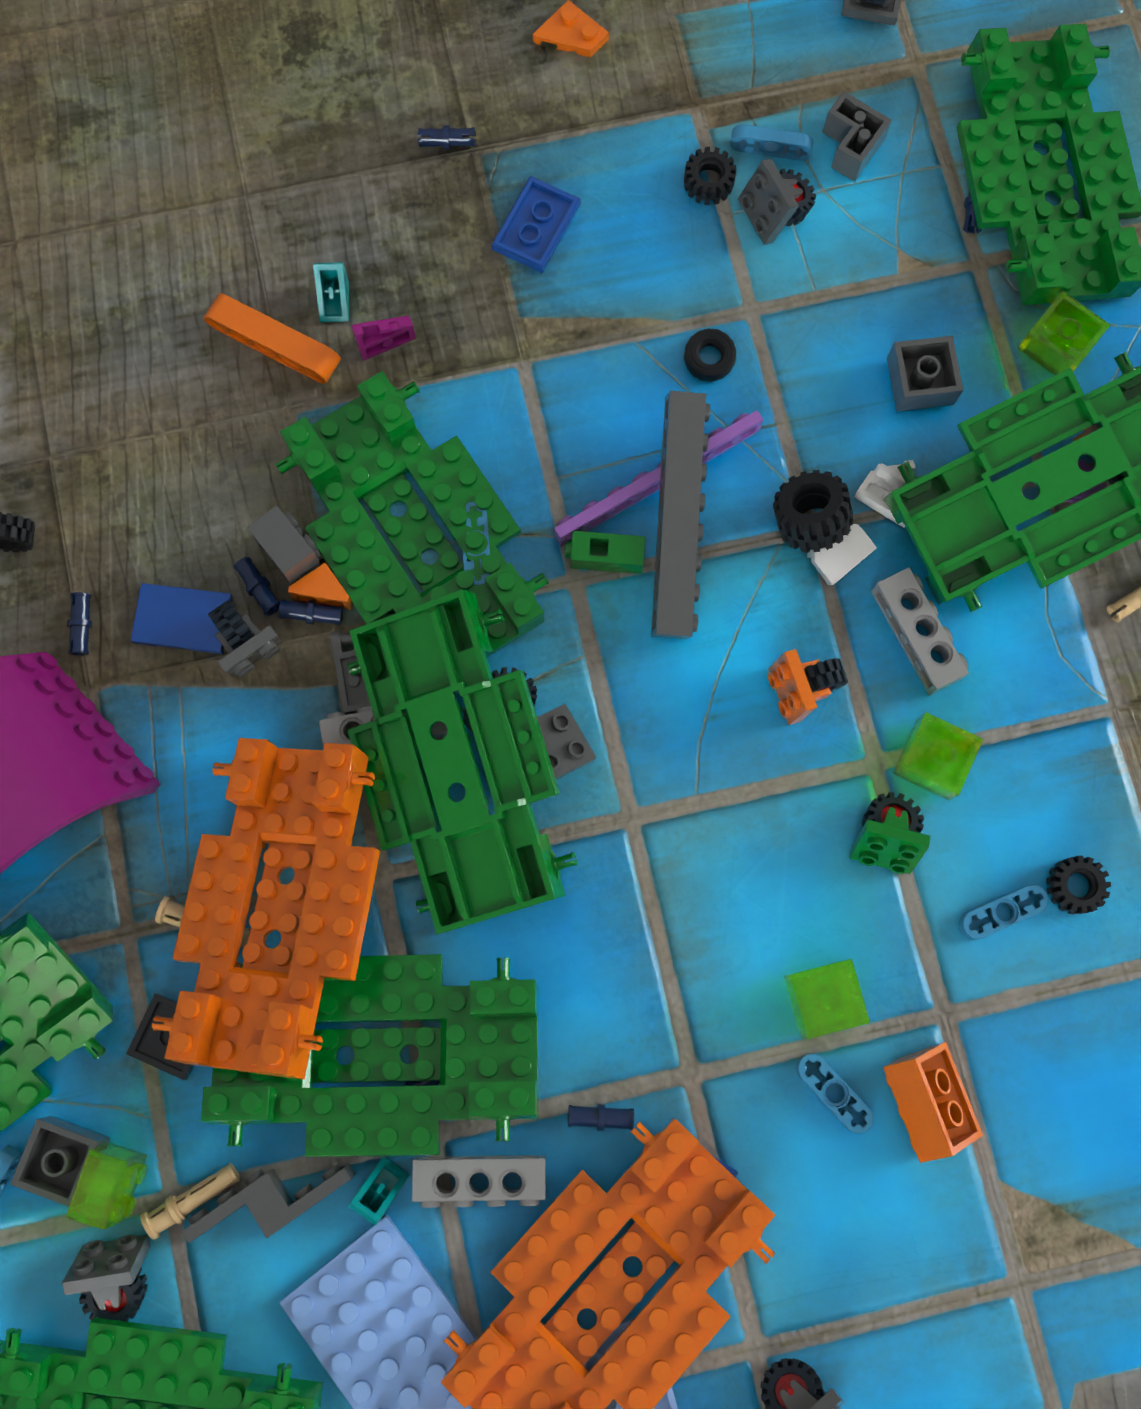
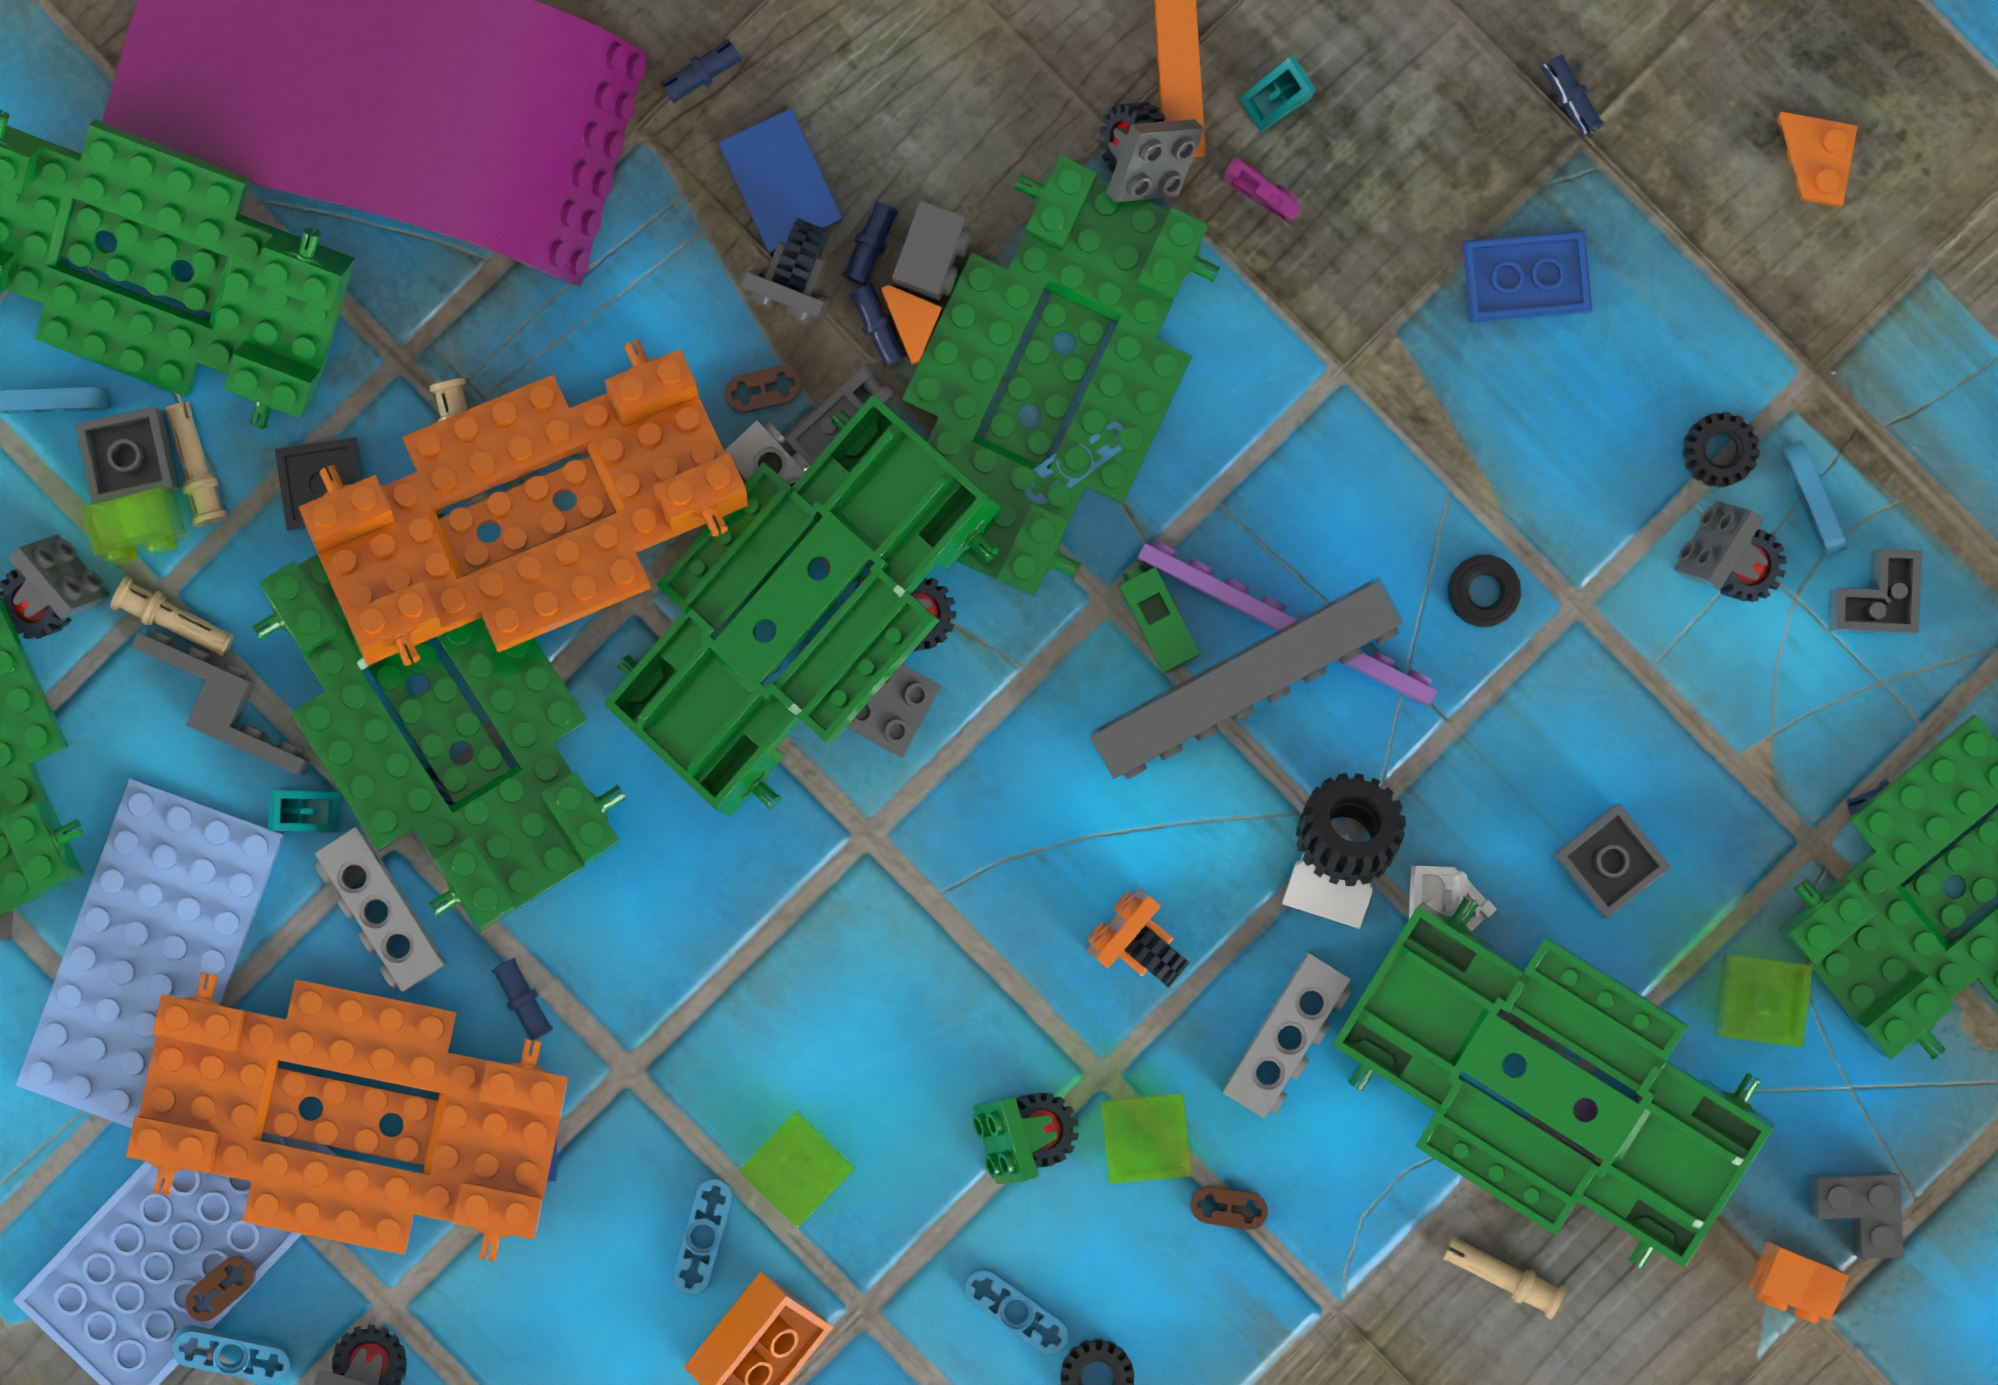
camera: 60 degrees right, 10 degrees up
(113, 1121) = (198, 481): none -> tan pin
(297, 705) = (761, 379): none -> reddish brown beam
(312, 382) = (1146, 153): none -> dark grey plate
(1004, 730) = (1229, 1197): none -> reddish brown beam

